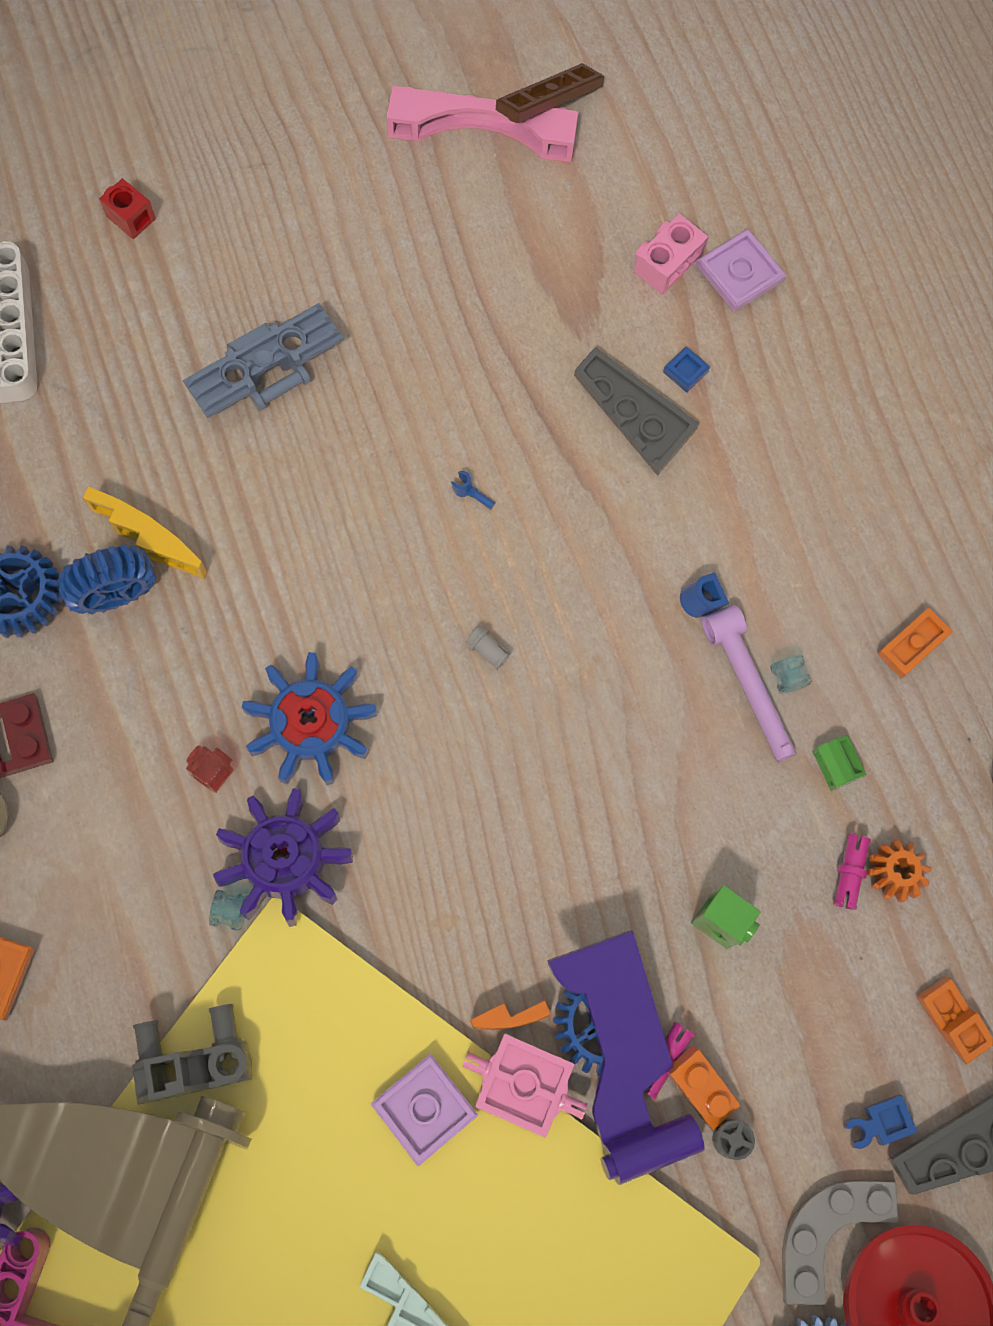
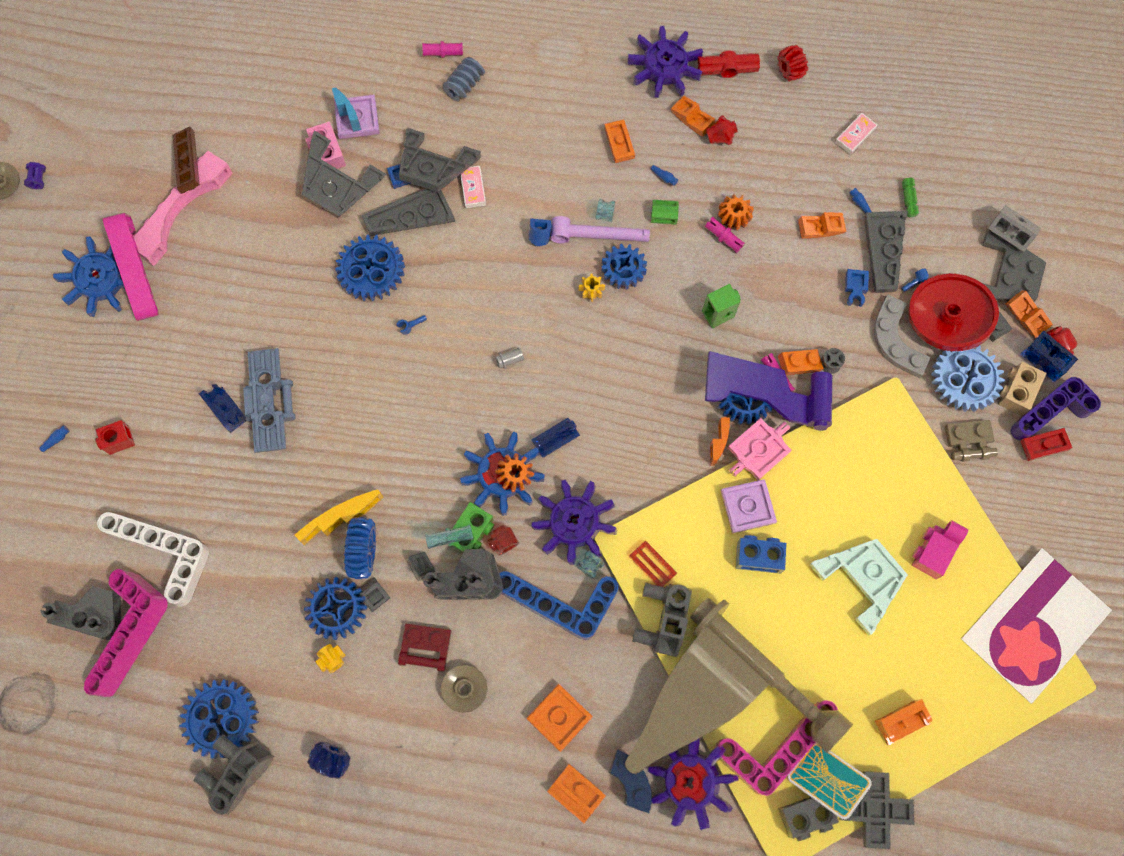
camera: 60 degrees left, 0 degrees up
(59, 632) = (374, 594): none -> dark grey slope
(97, 142) = (57, 436): none -> blue piece
(125, 674) = (420, 565): none -> dark grey slope
(127, 751) = (473, 578): none -> dark grey piece
(146, 892) = (558, 607): none -> blue beam
(171, 688) = (449, 536): none -> clear light blue pin
(206, 707) = (466, 518): none -> bright green brick
(229, 313) = (223, 407): none -> clear blue hinge
(281, 1009) = (657, 556): none -> clear red tile
(306, 720) = (506, 468): none -> orange gear
(334, 77) = (84, 277): none -> blue gear
(343, 1167) = (761, 561): none -> blue brick
(365, 98) = (121, 238): none -> dark pink beam
(400, 769) = (556, 437): none -> clear blue hinge
(496, 403) = (370, 267): none -> blue gear
(613, 287) = (331, 187): none -> dark grey wing
(655, 721) = (591, 293): none -> yellow gear
(714, 400) = (429, 168): none -> dark grey wing
(724, 473) = (473, 187): none -> bright pink tile
(729, 744) = (621, 258): none -> blue gear
(737, 248) = (345, 108): none -> dark azure slope
(882, 377) = (463, 78): none -> sand blue piece
(899, 736) = (666, 176): none -> blue piece
(912, 330) = (442, 49): none -> dark pink pin
(959, 1227) = (921, 276): none -> blue hand

